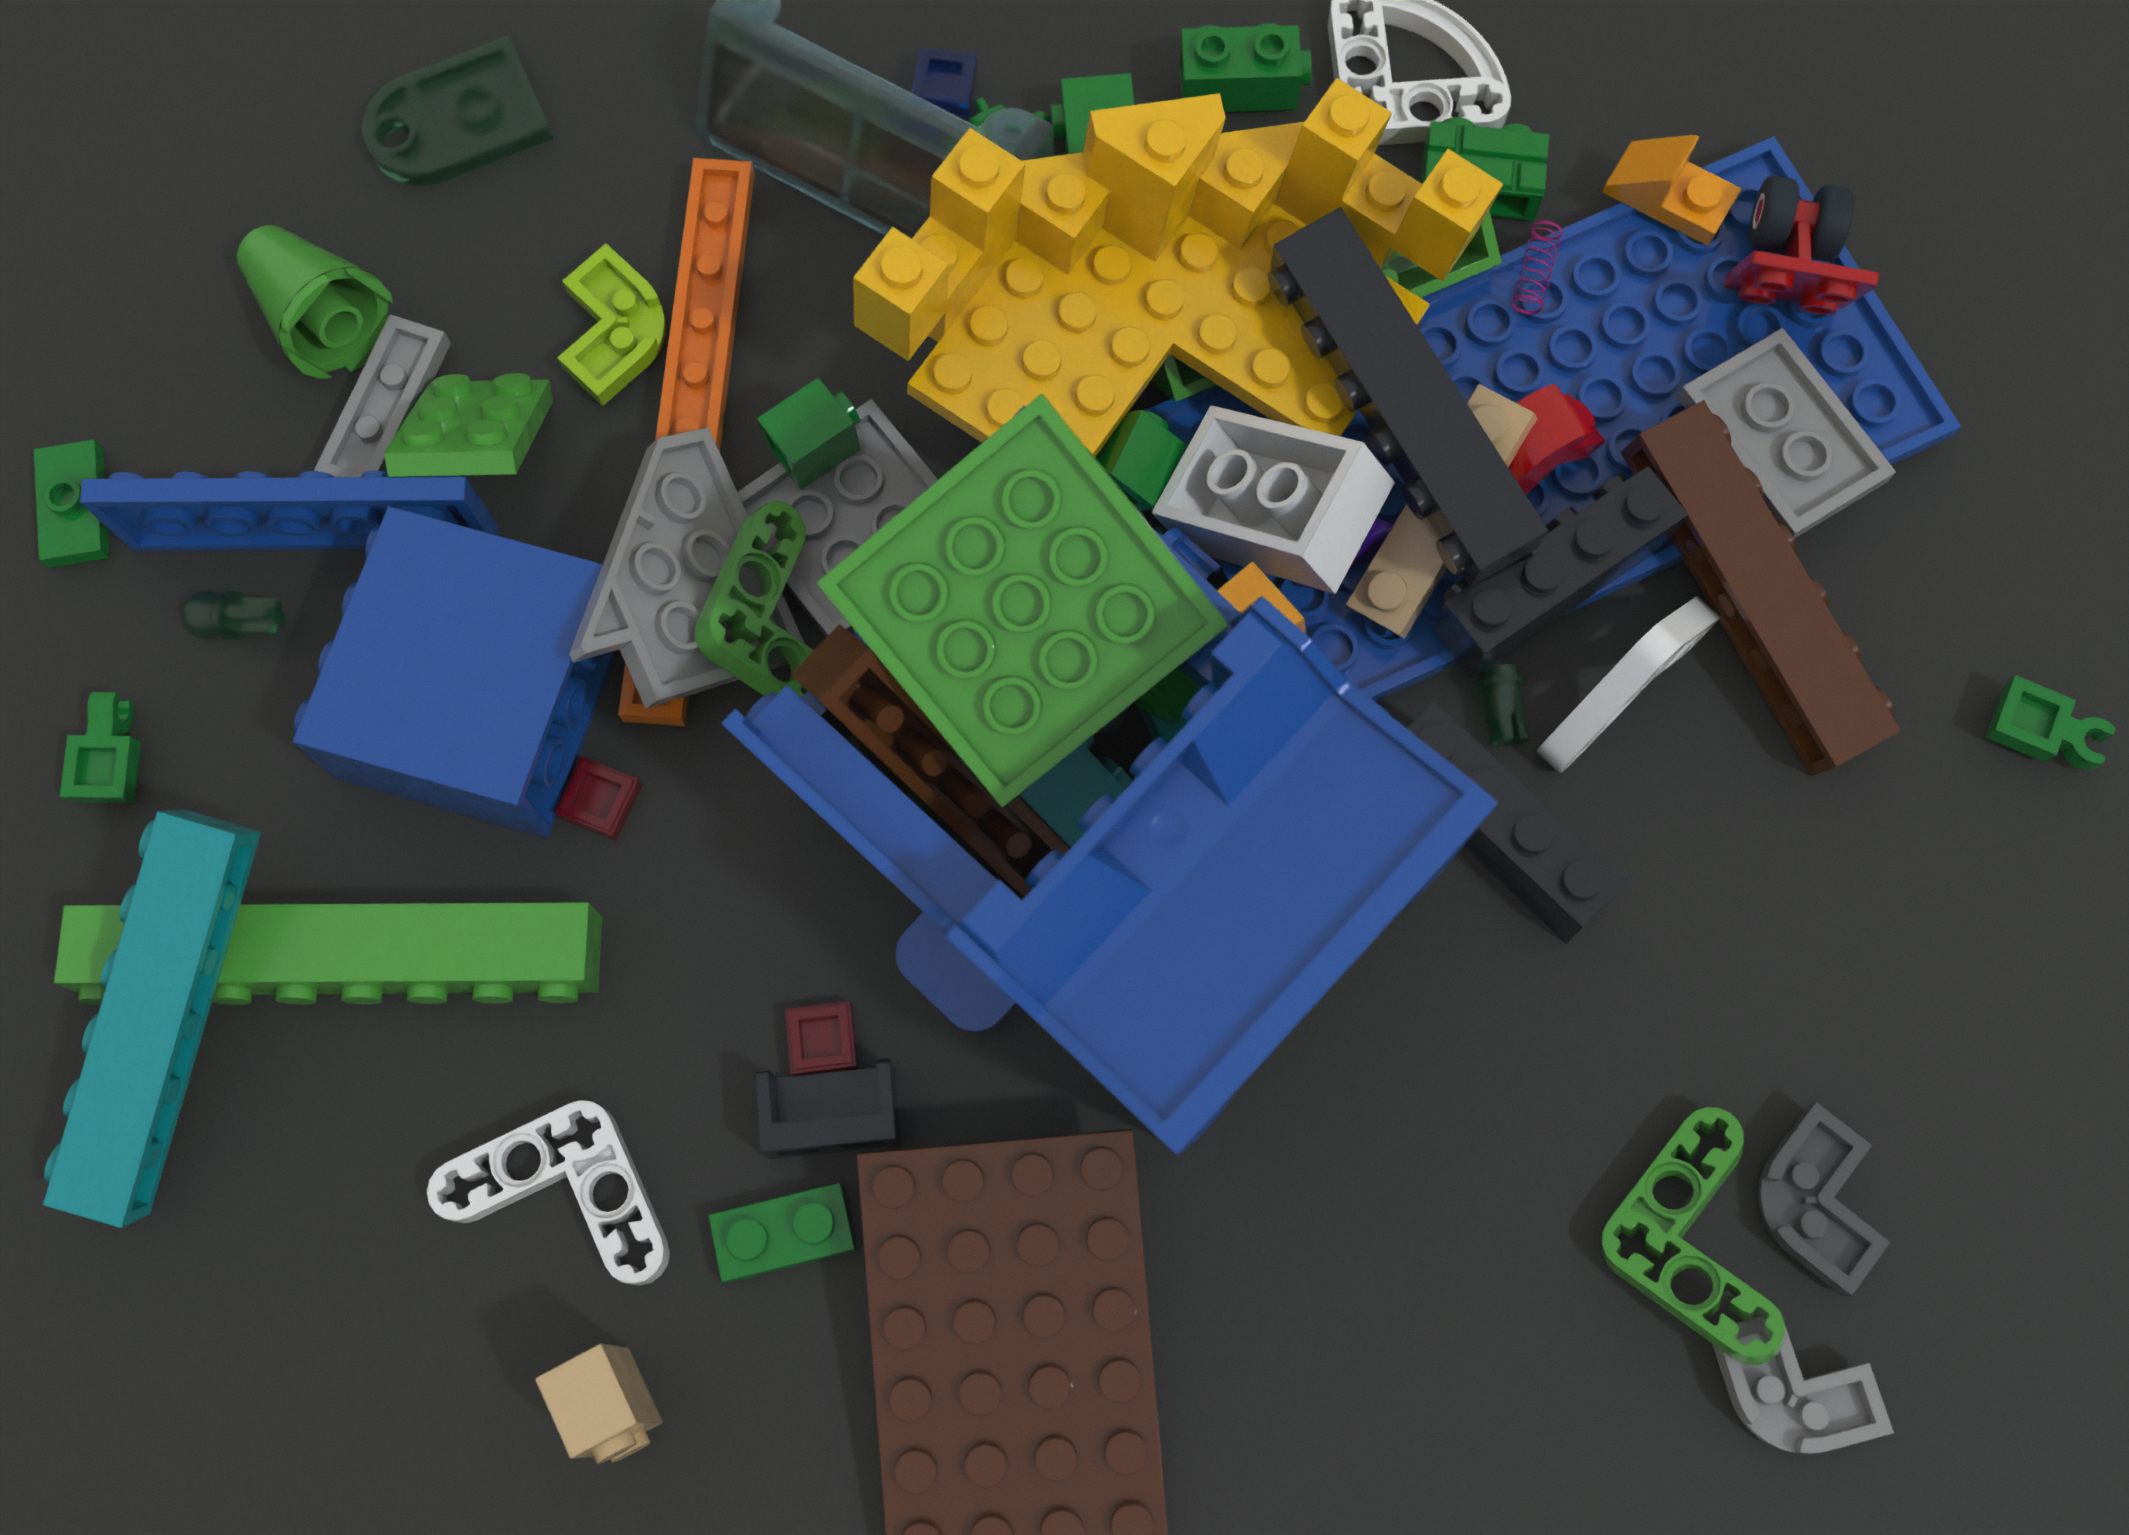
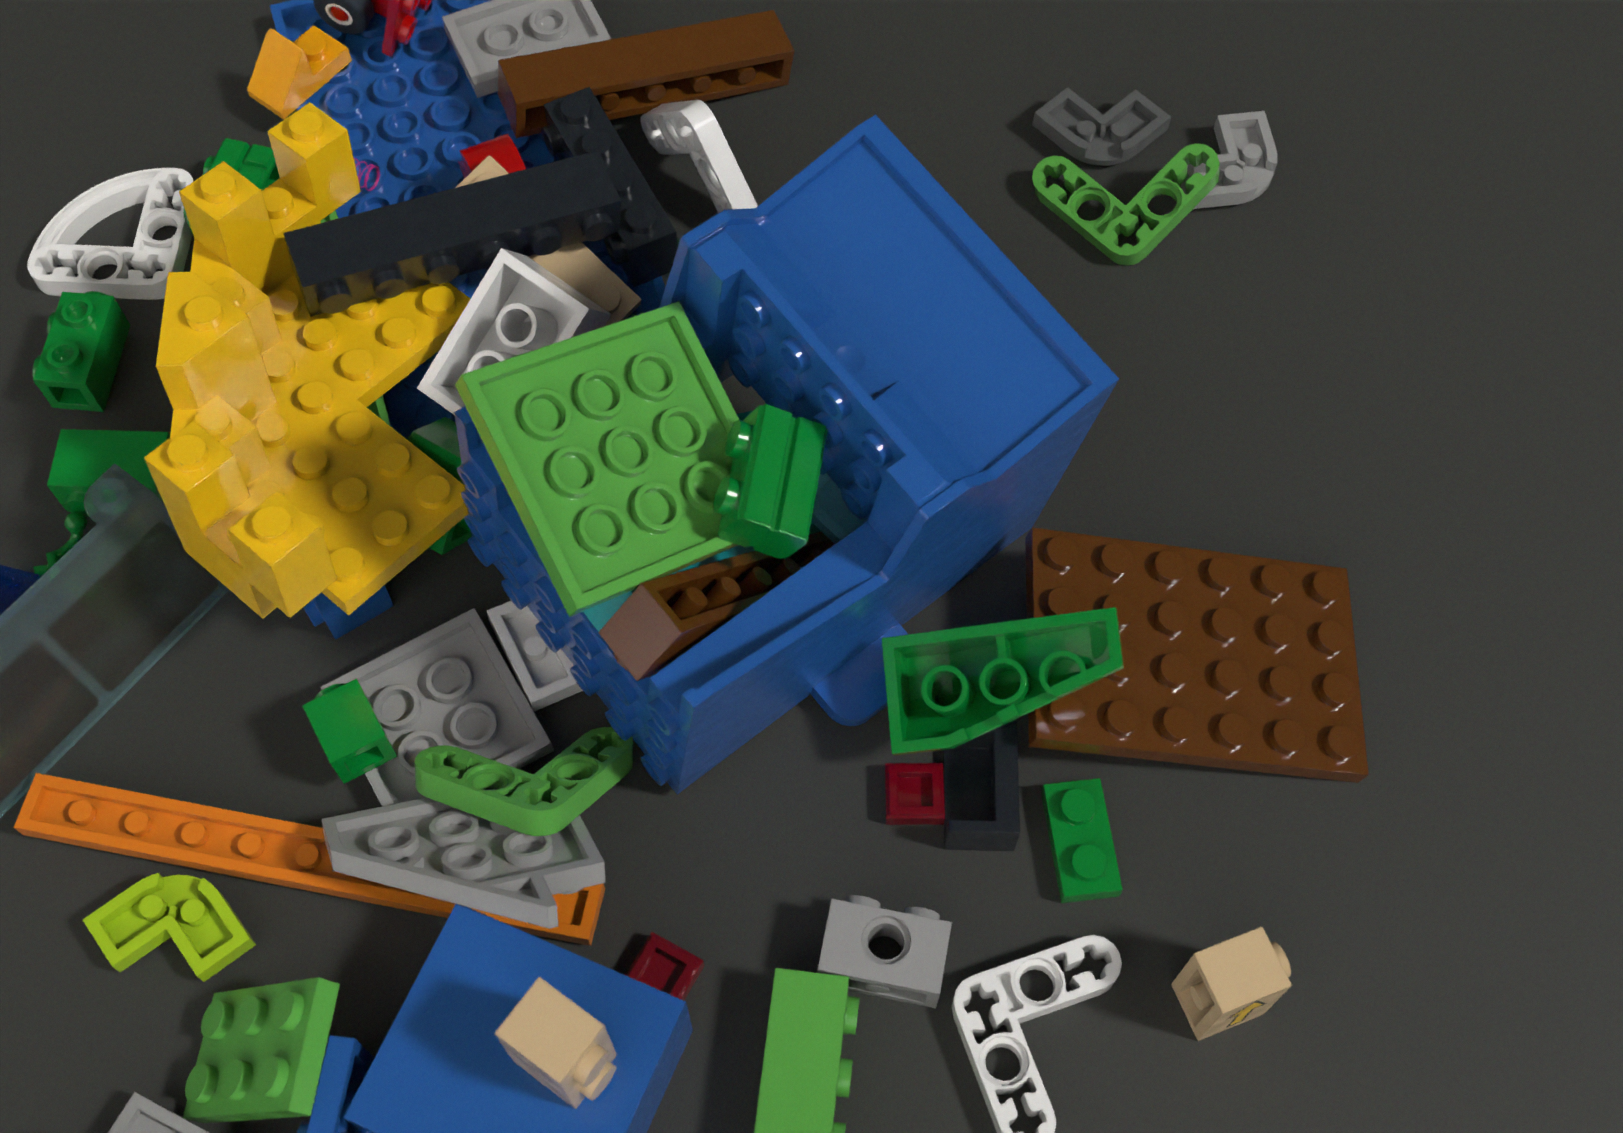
camera: 85 degrees left, 10 degrees down
(431, 677) = (559, 1044): none -> tan brick
(612, 985) = (912, 975): none -> light grey brick
(924, 1090) = (979, 677): none -> green wedge
(1017, 769) = (771, 481): none -> green brick

